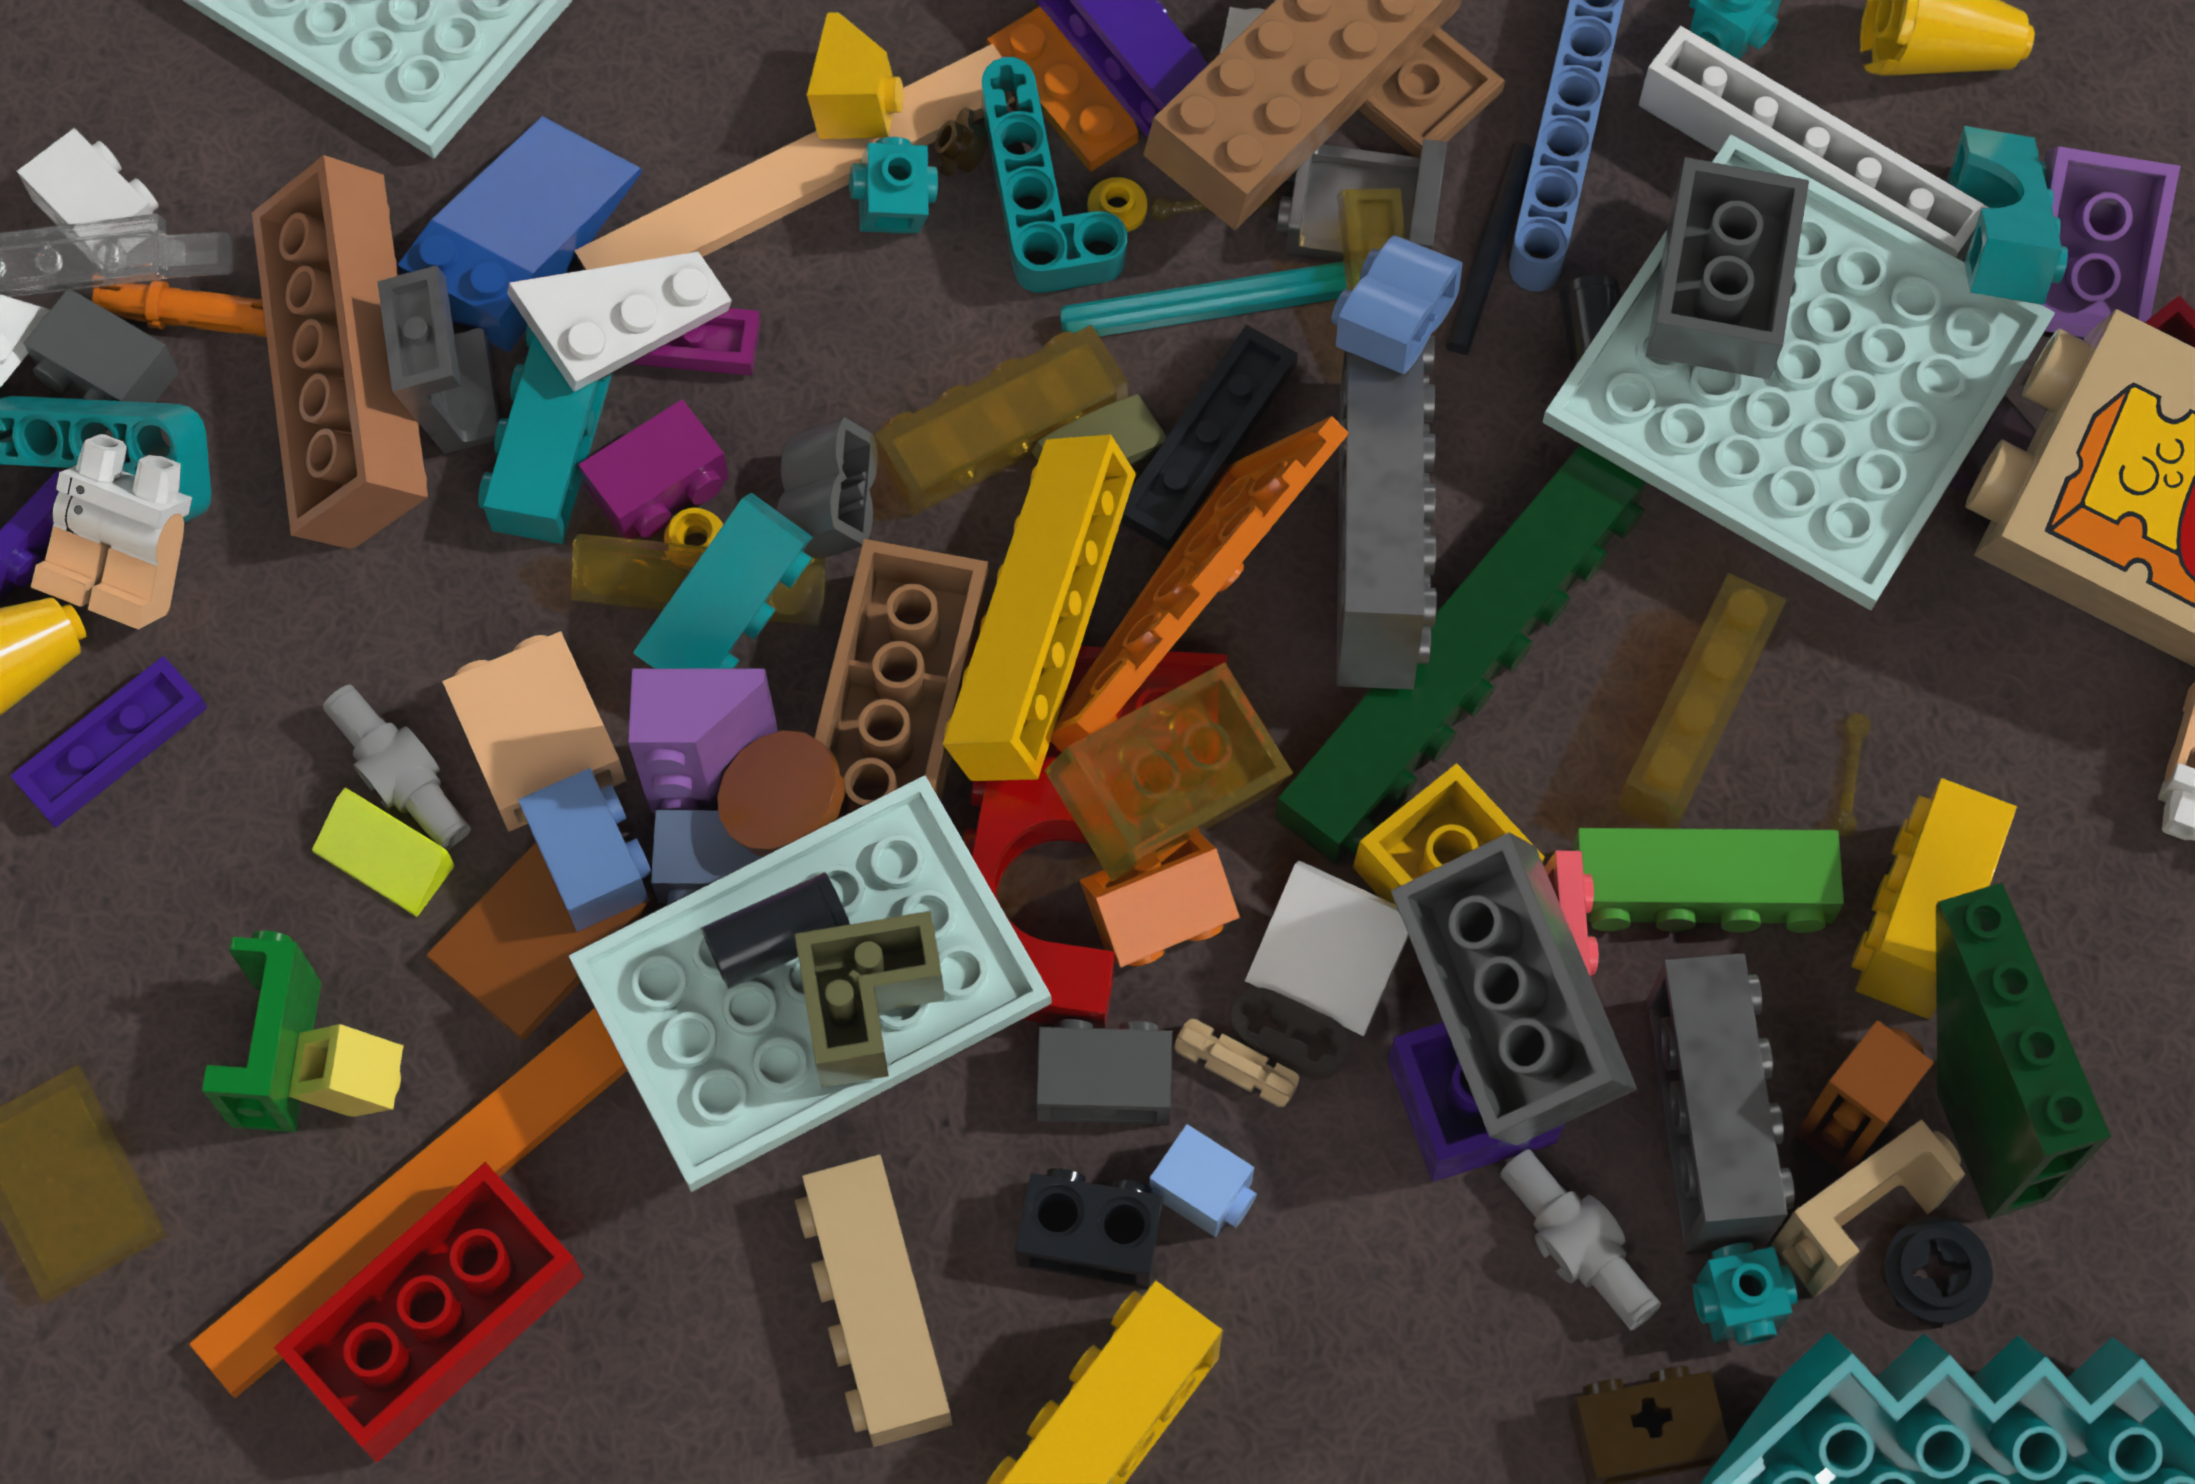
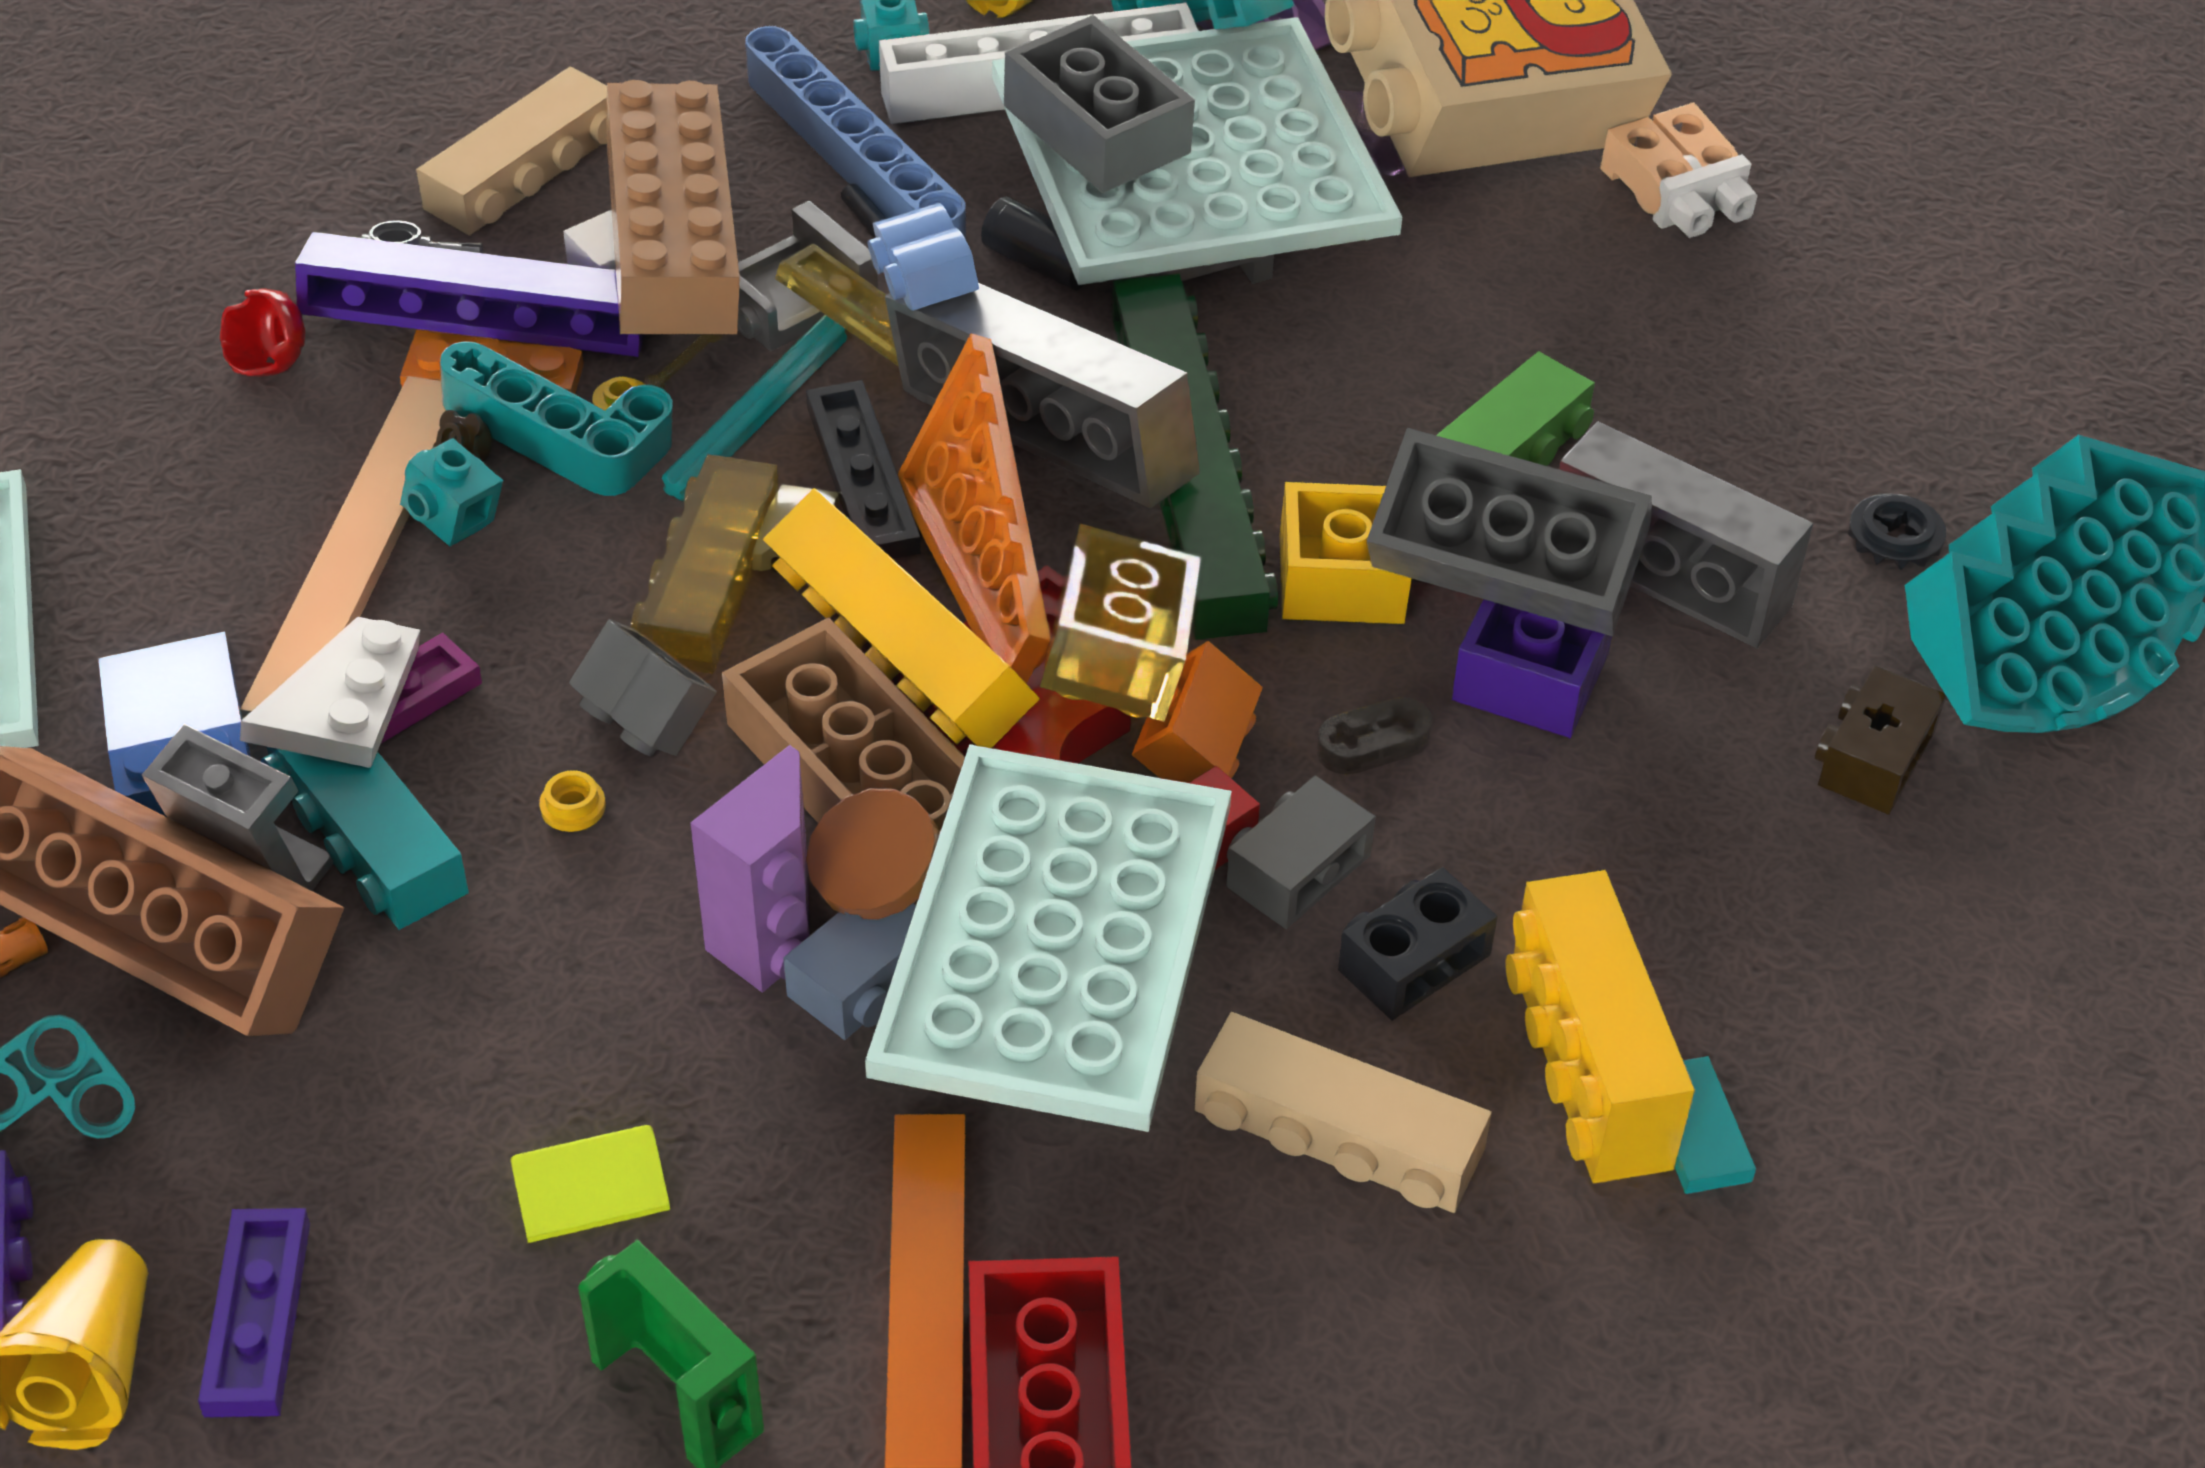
camera: 50 degrees left, 20 degrees down
(115, 534) = (91, 1123): hips -> none
(346, 1071) = (774, 1323): light yellow brick -> none
(396, 767) = (524, 1116): light grey pin -> none
(518, 945) = (782, 1127): dark orange tile -> none
(531, 722) = (611, 1004): light nougat brick -> none
(584, 848) = (760, 1028): medium blue brick -> none
(652, 571) = (610, 819): clear yellow plate -> none
(655, 472) = (492, 782): magenta brick -> none
(728, 590) = (658, 781): teal brick -> none
(765, 931) = (1004, 899): black pin -> none
(852, 84) = (340, 452): yellow slope -> none
(853, 976) = (1115, 870): olive brick -> none
(1204, 1182) = (1447, 839): light blue brick -> none
(1236, 1062) = (1377, 774): tan axle -> none
(1330, 947) = (1338, 654): white tile -> none
(1432, 94) = (762, 199): medium nougat plate -> none
(1580, 1239) = (1699, 682): light grey pin -> none
(1700, 704) = (1364, 359): clear yellow brick -> none
(1729, 1309) = (1827, 622): teal brick -> none
(1813, 1235) = (1823, 495): tan panel -> none
(1857, 728) = (1462, 320): clear yellow hinge -> none
(1863, 1096) = (1762, 429): dark orange brick -> none
(1940, 853) = (1639, 340): yellow brick -> none
(2006, 1059) = (1813, 353): dark green slope -> none

